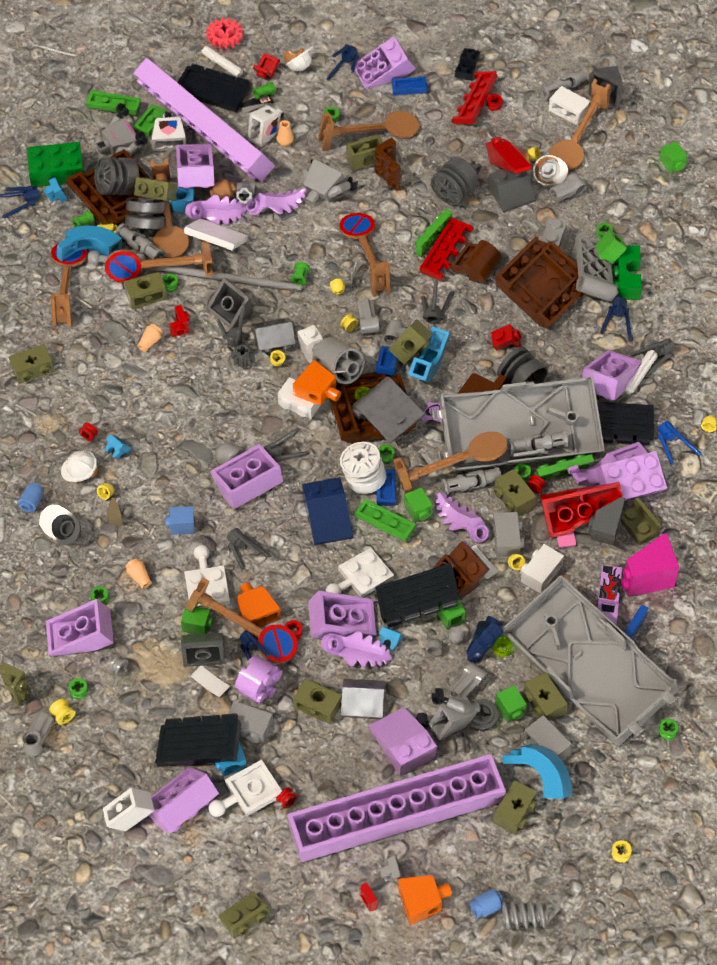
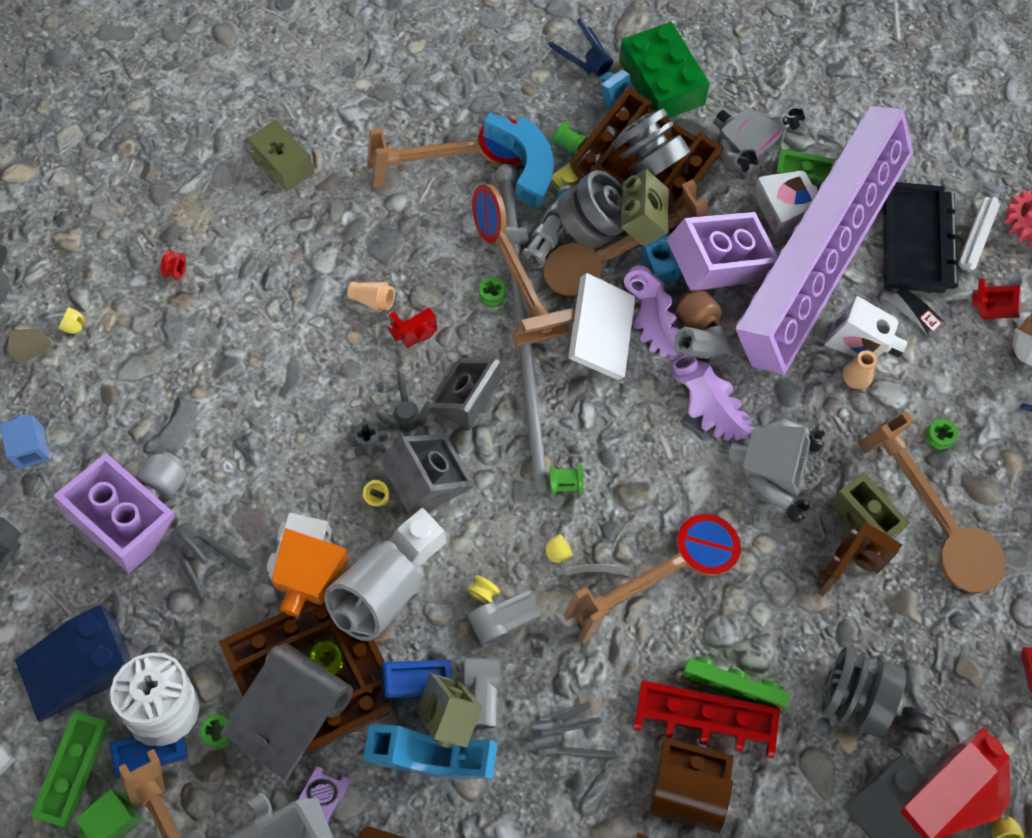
camera: 75 degrees right, 10 degrees up
(31, 497) = (41, 227): medium blue brick -> none
(80, 467) = (109, 276): white piece -> none
(109, 101) = (820, 111): bright green plate -> none
(118, 444) = (155, 311): dark azure tile -> none
(145, 290) = (457, 244): olive brick -> none
(268, 89) = (944, 313): bright green pin -> none

